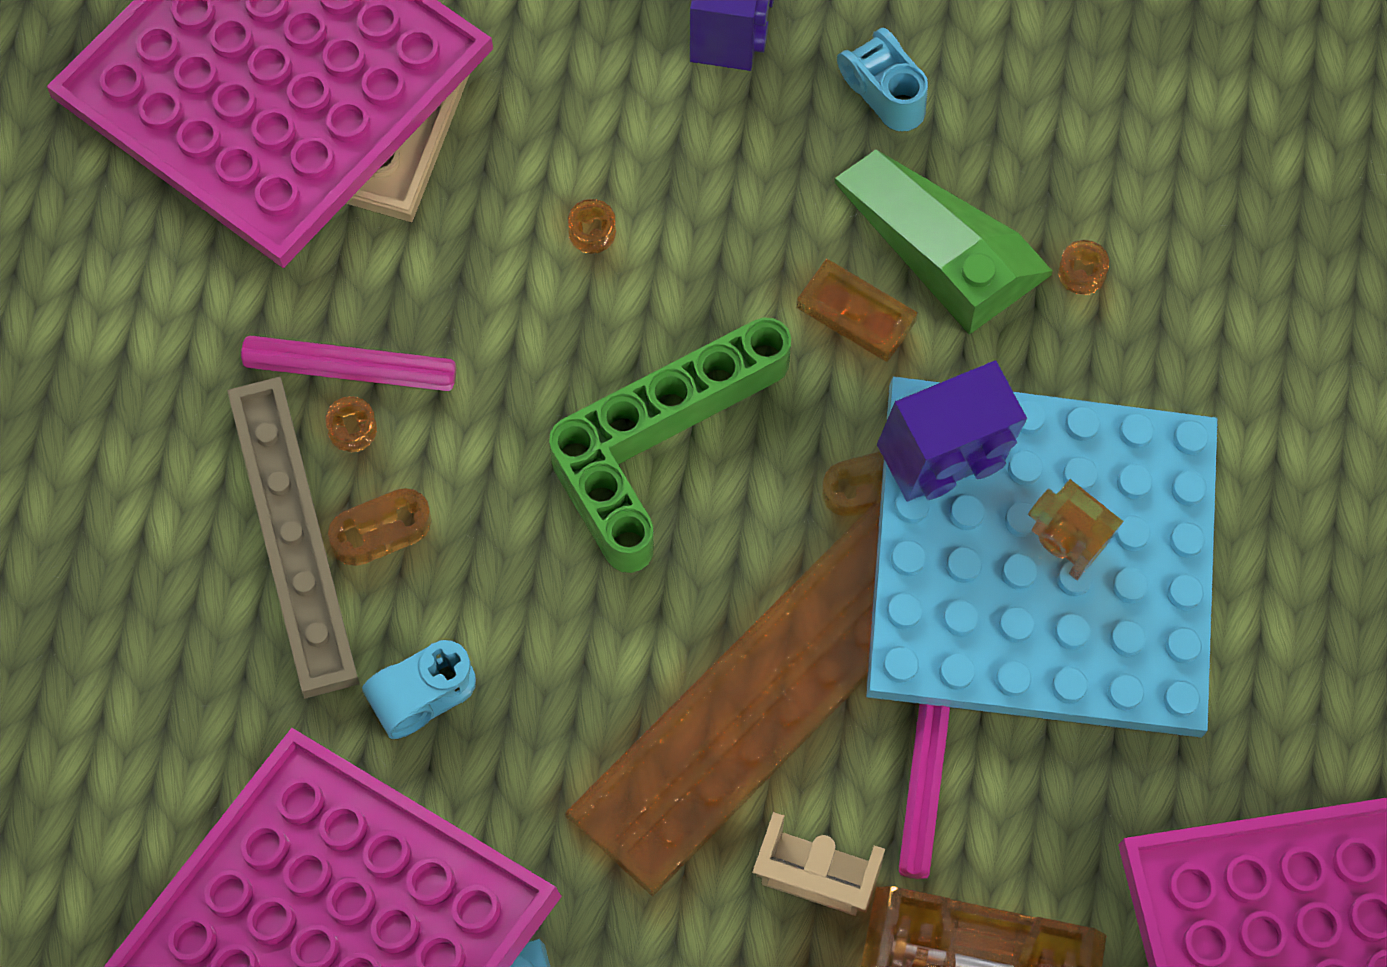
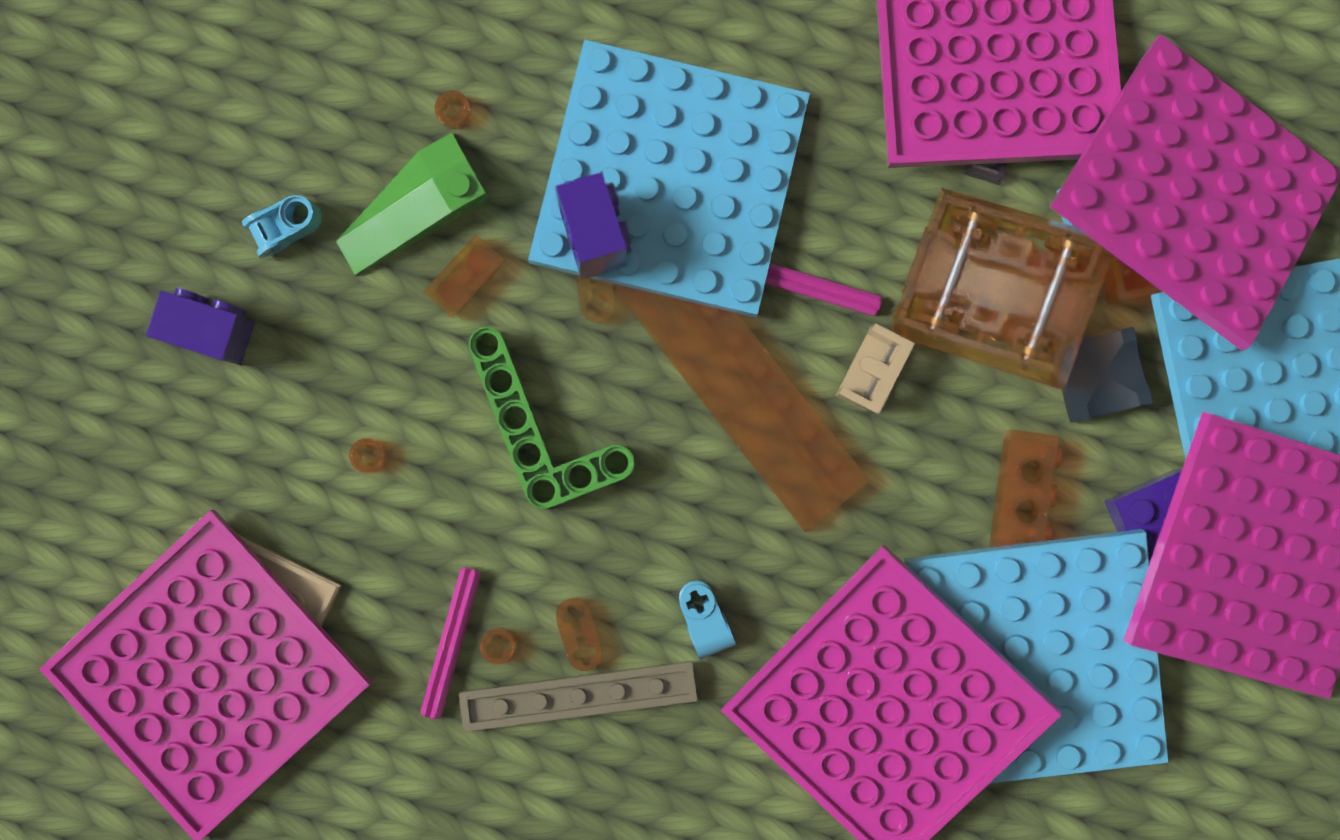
camera: 80 degrees left, 20 degrees up
(1073, 525) = (665, 154): clear orange brick -> none

